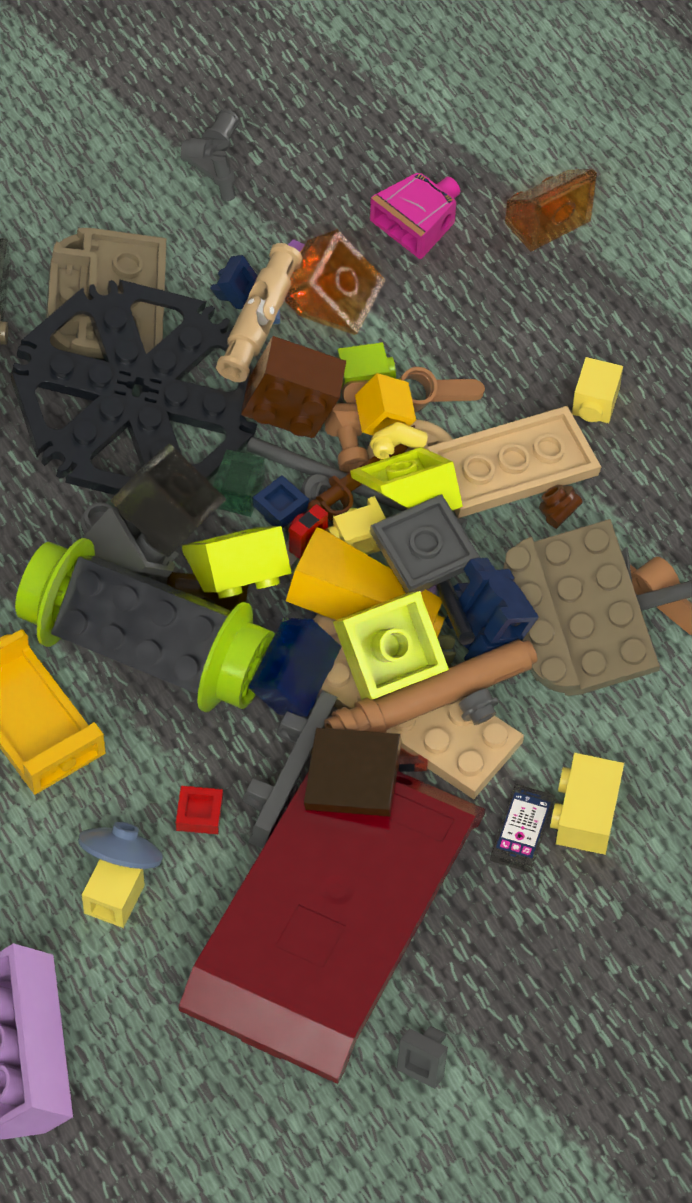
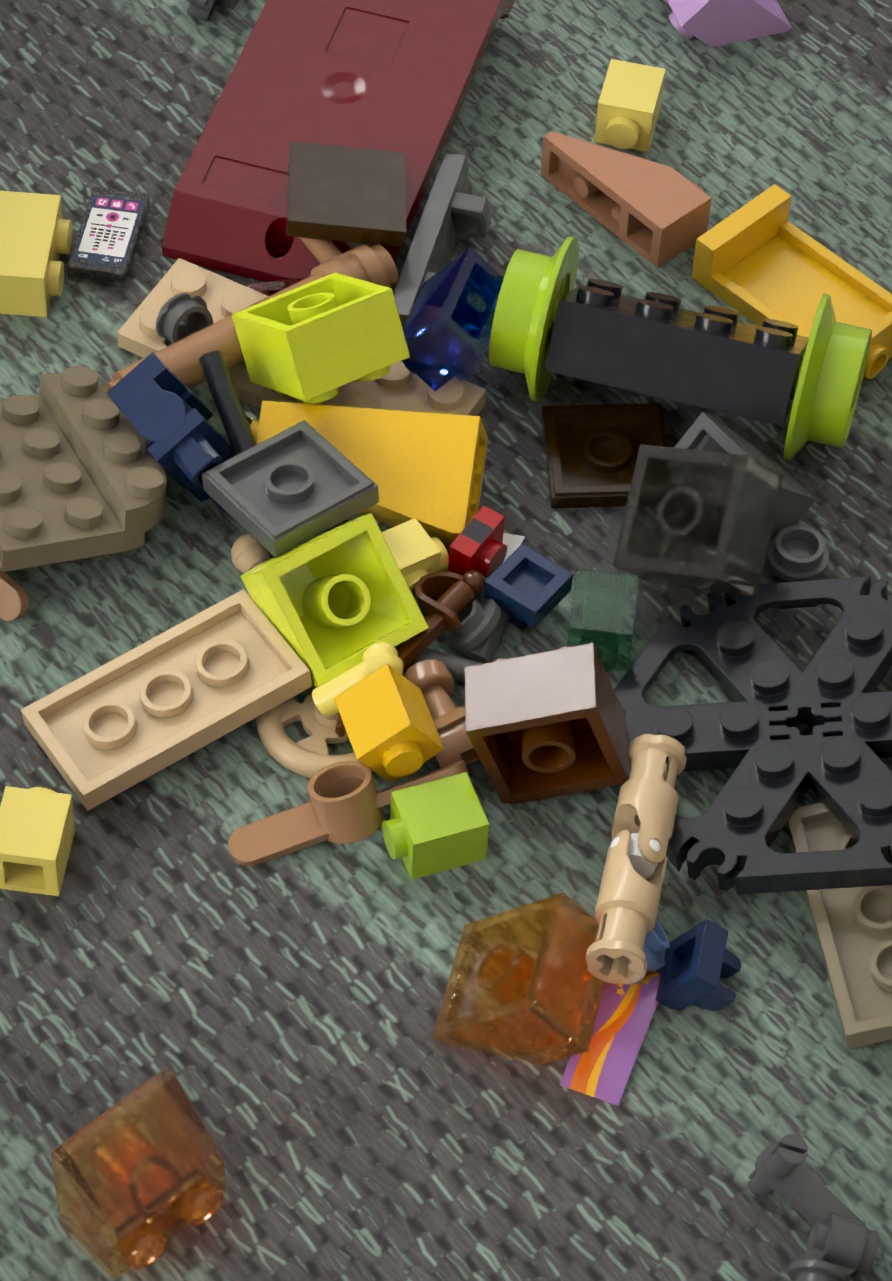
camera: 170 degrees right, 5 degrees down
(121, 846) = (640, 102): sand blue dish -> none
(129, 796) = (631, 196): none -> nougat slope
(199, 810) = (545, 205): red plate -> none
(239, 559) = (570, 490): neon yellow slope -> none
(416, 211) = (395, 1156): dark pink torso -> none
(559, 504) = (82, 653): reddish brown plate -> none

